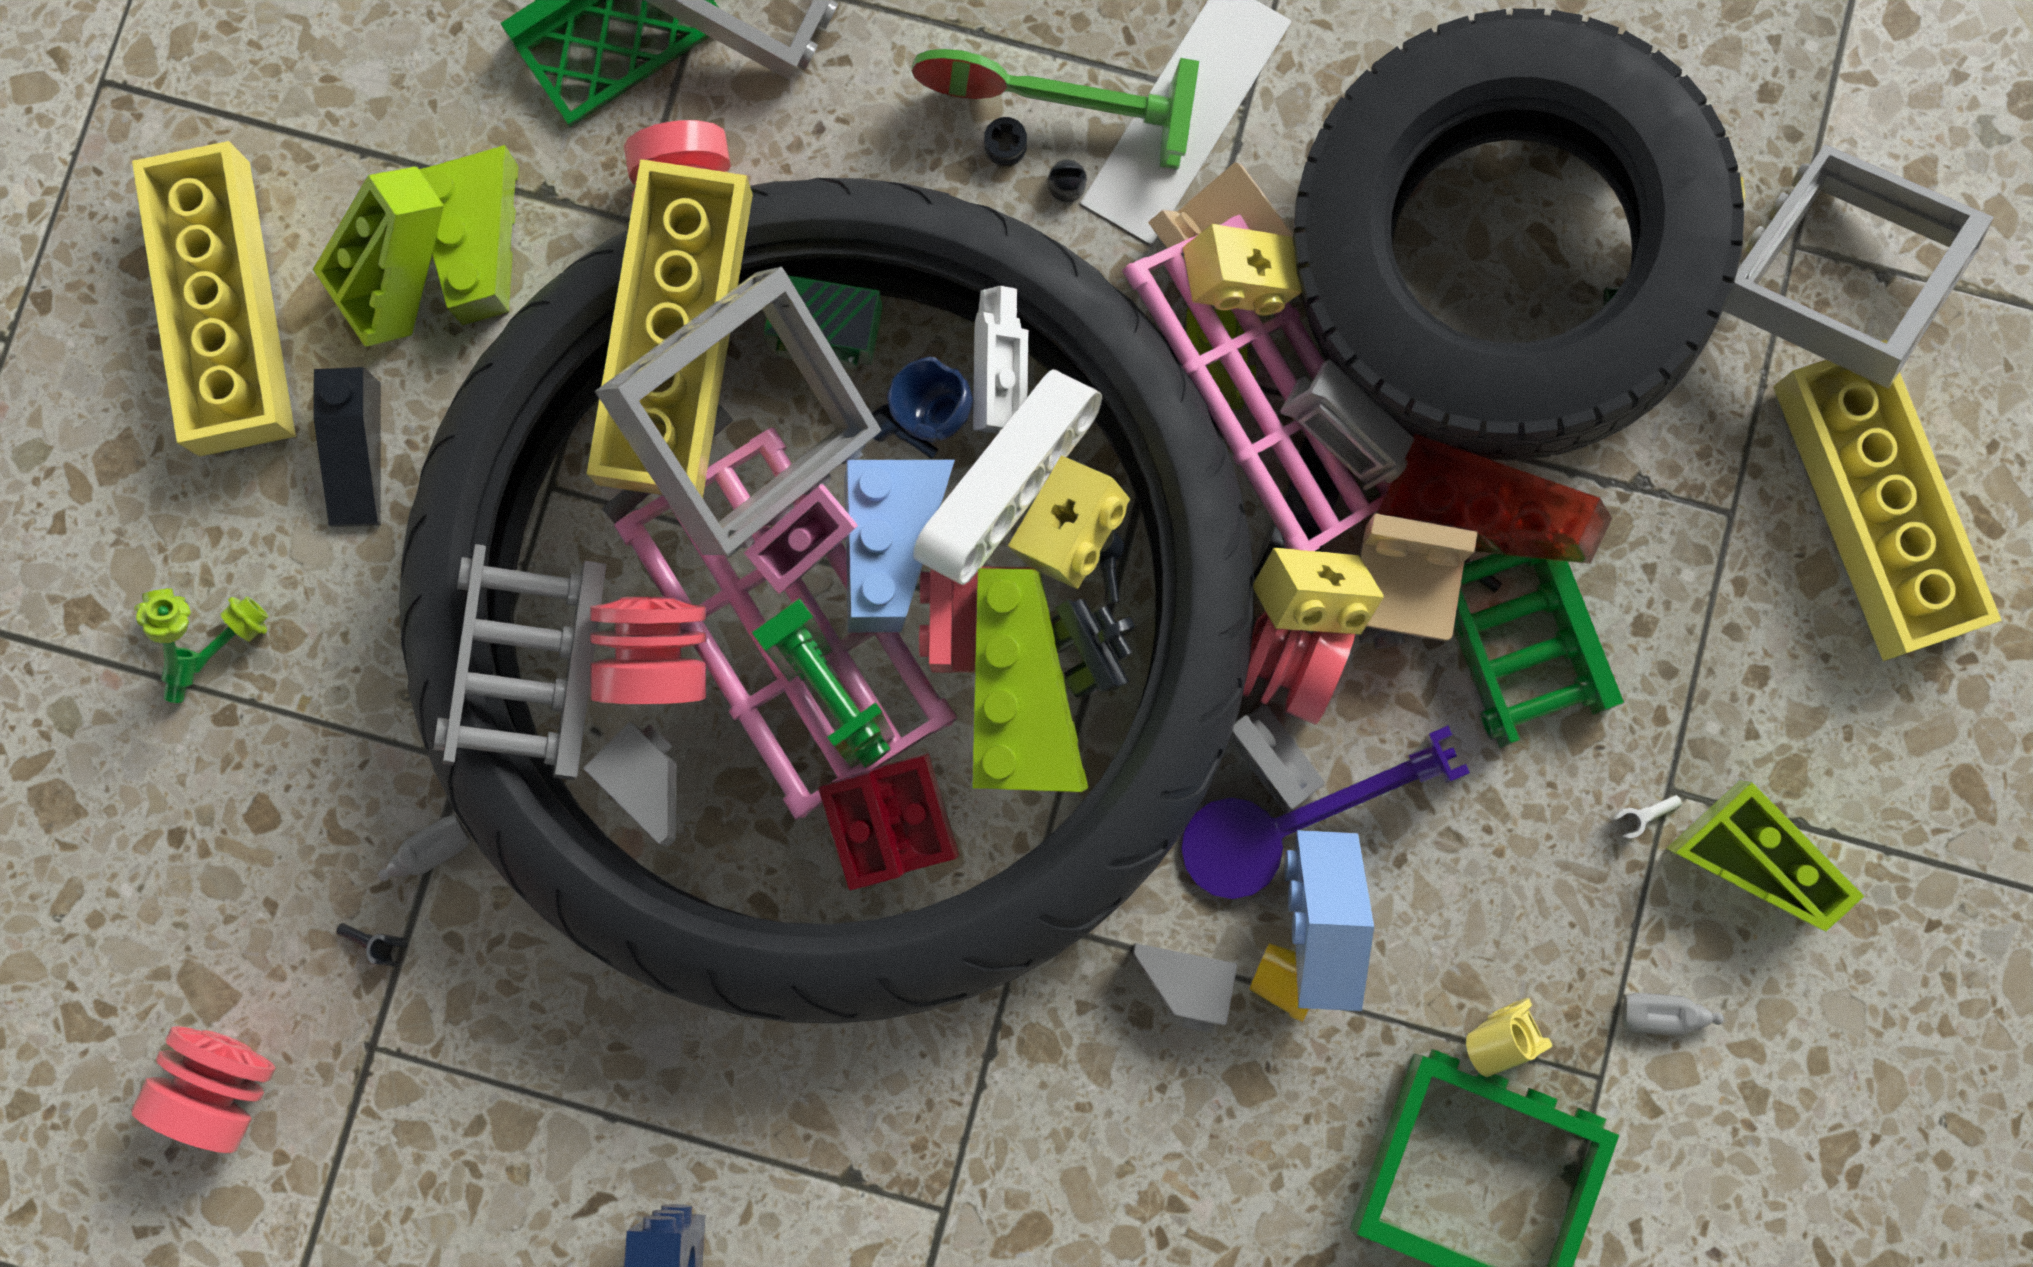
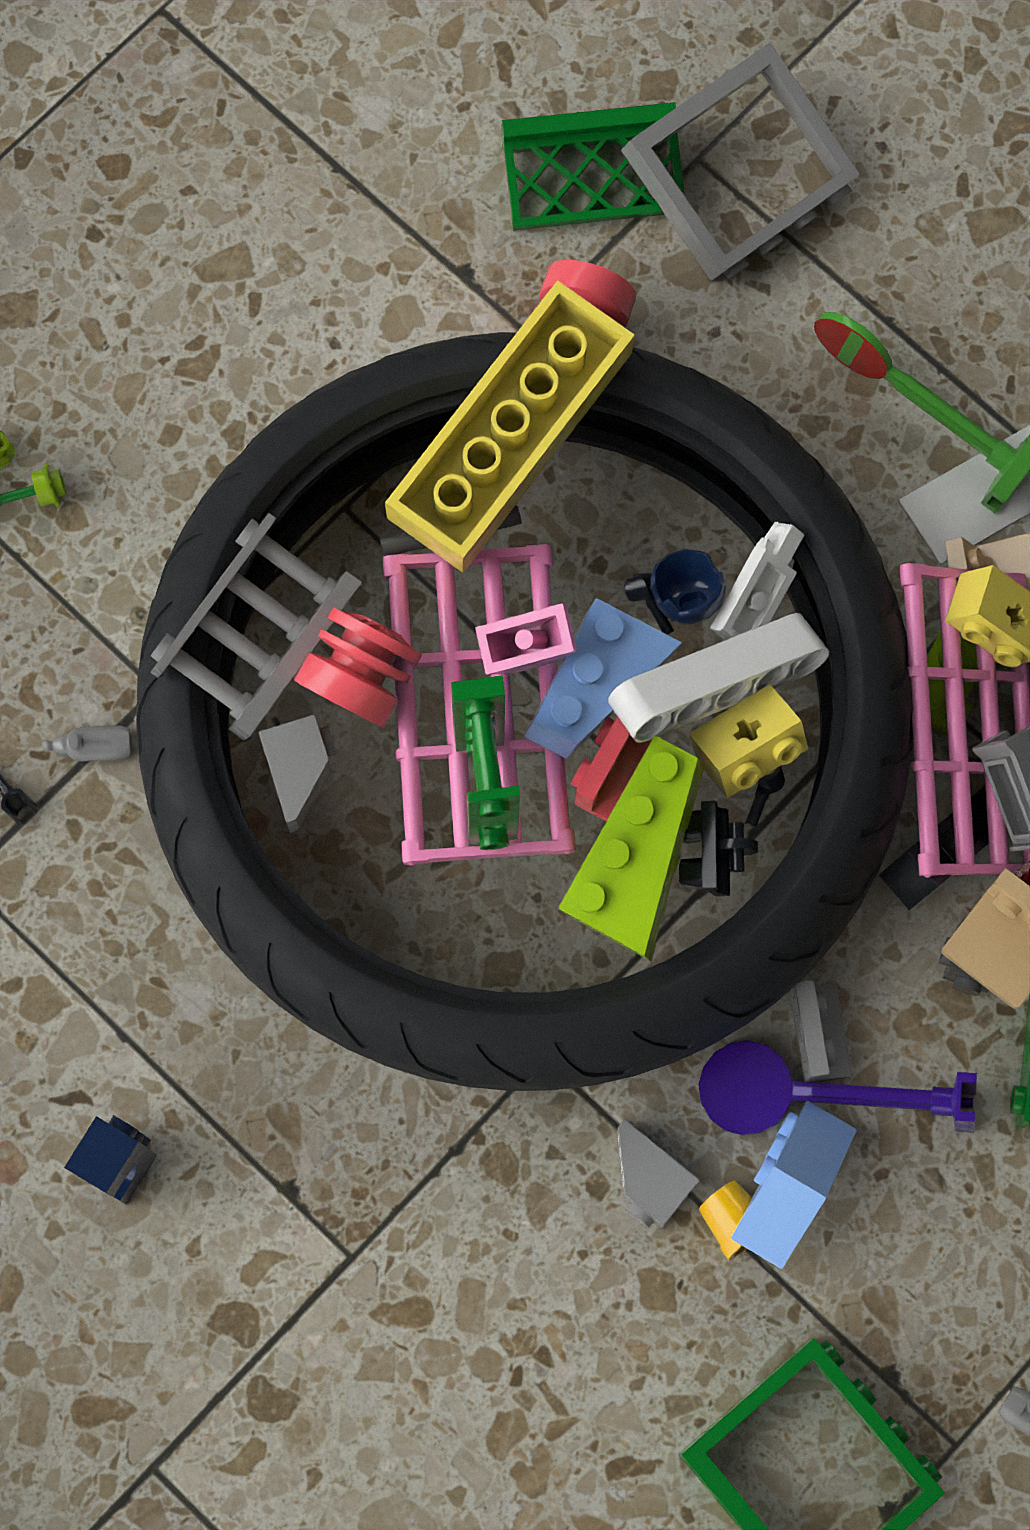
camera: 25 degrees right, 5 degrees down
(213, 299) = (158, 224): light yellow brick -> none
(349, 444) = (203, 391): black slope -> none
(382, 254) = (311, 255): lime wedge -> none
(475, 232) = (389, 271): lime wedge -> none
(819, 365) = (612, 516): light grey window -> none
(845, 316) = (635, 481): brick -> none
(888, 821) = (476, 903): dark red slope -> none
(1019, 136) = (862, 433): black bush -> none
(1067, 188) = (895, 482): black hinge -> none
(1299, 662) = (880, 957): coral wheel -> none
(1317, 591) = (925, 907): light yellow brick -> none
(1506, 1039) = (890, 1364): light yellow piece -> none

